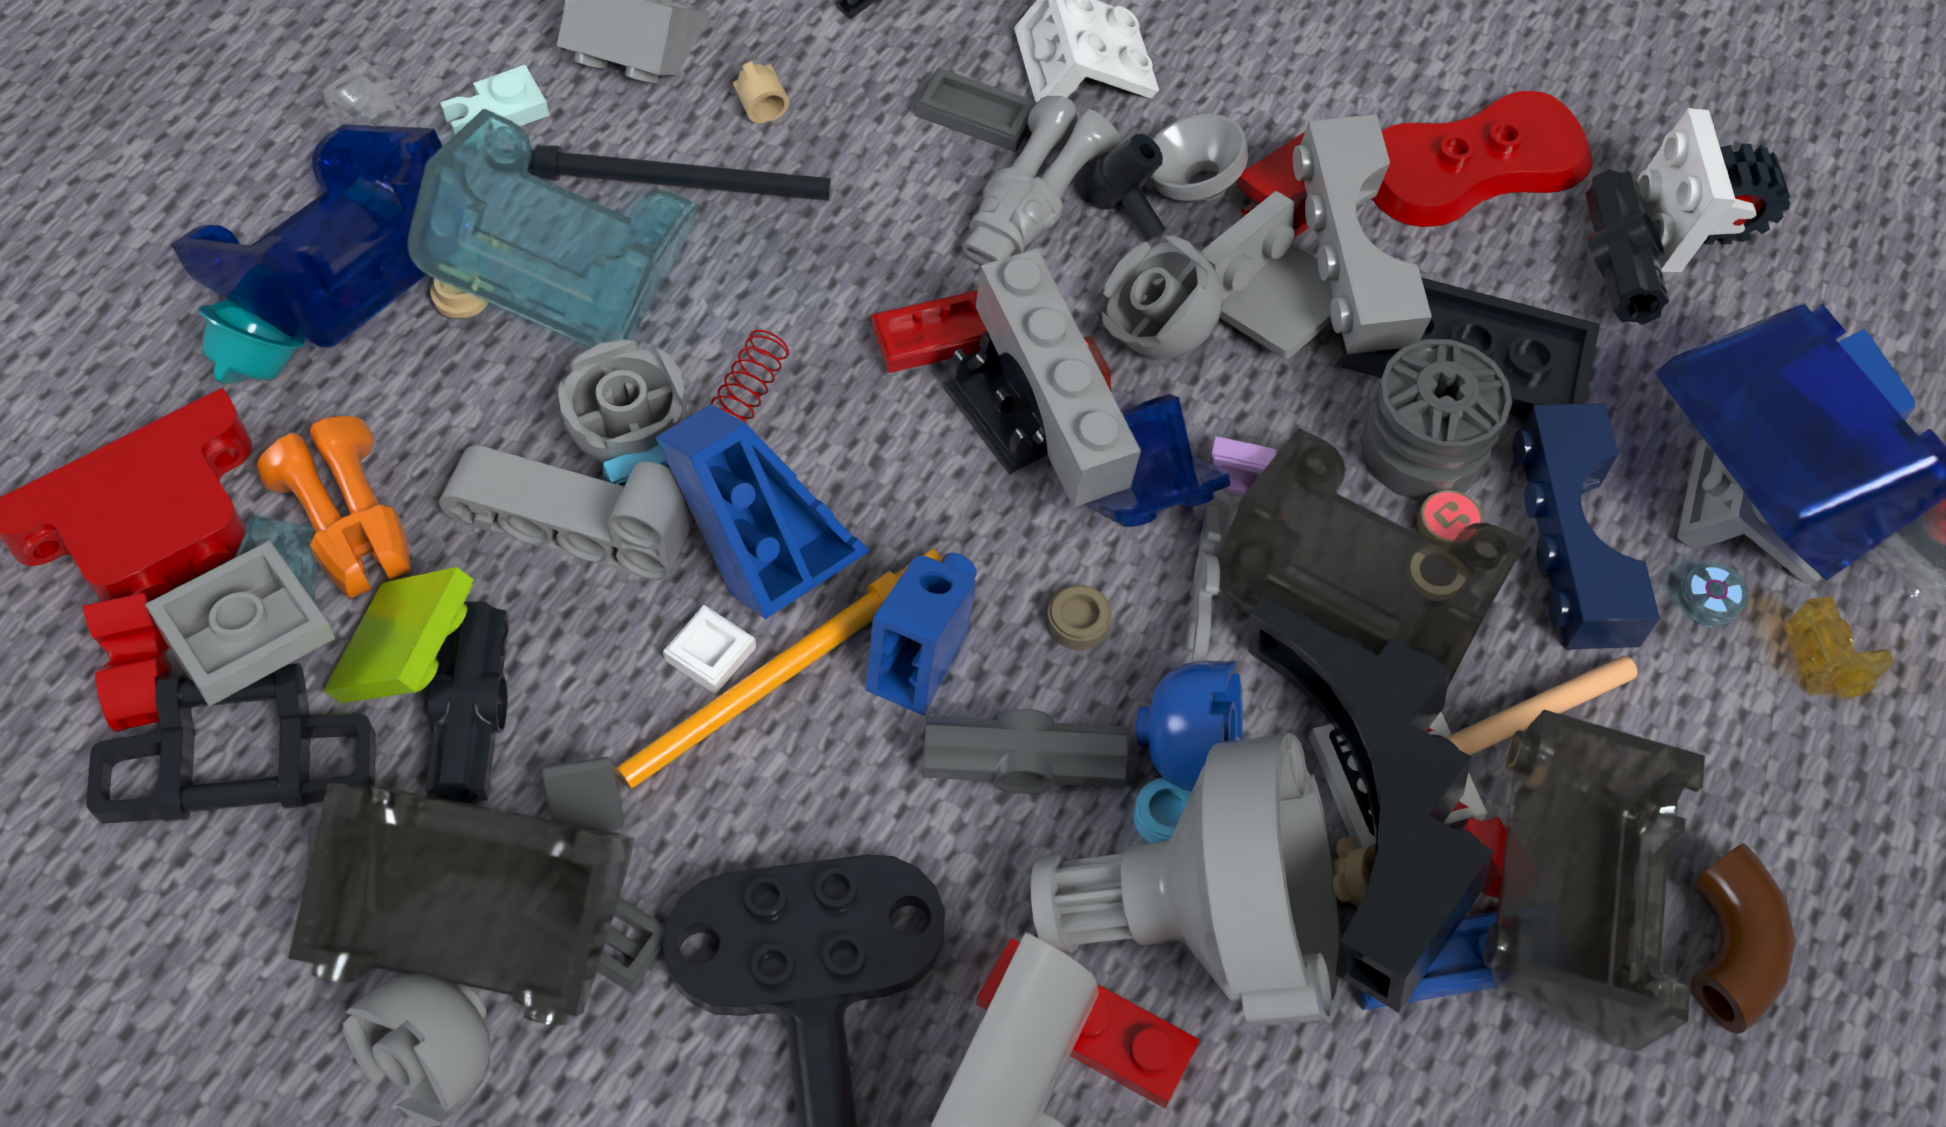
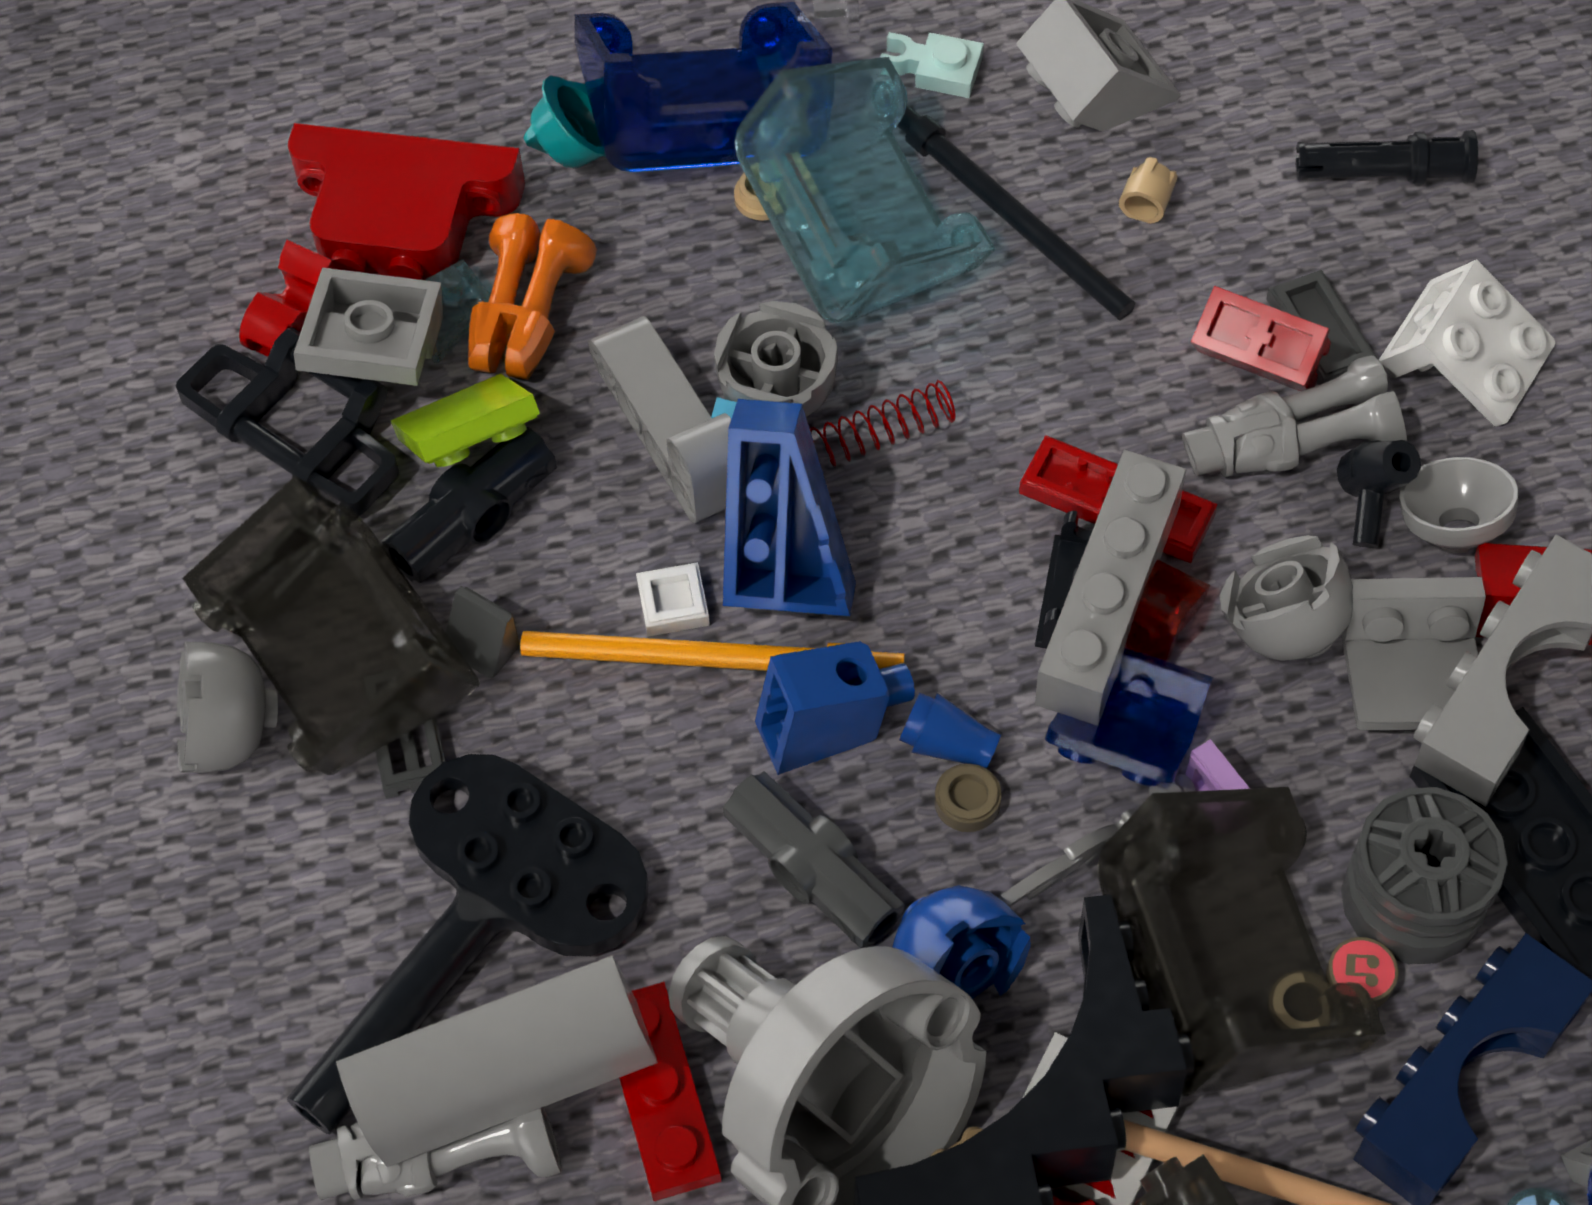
camera: 50 degrees right, 0 degrees up
(959, 138) = (1261, 339): none -> hinge
(1019, 581) = (948, 733): none -> blue cone

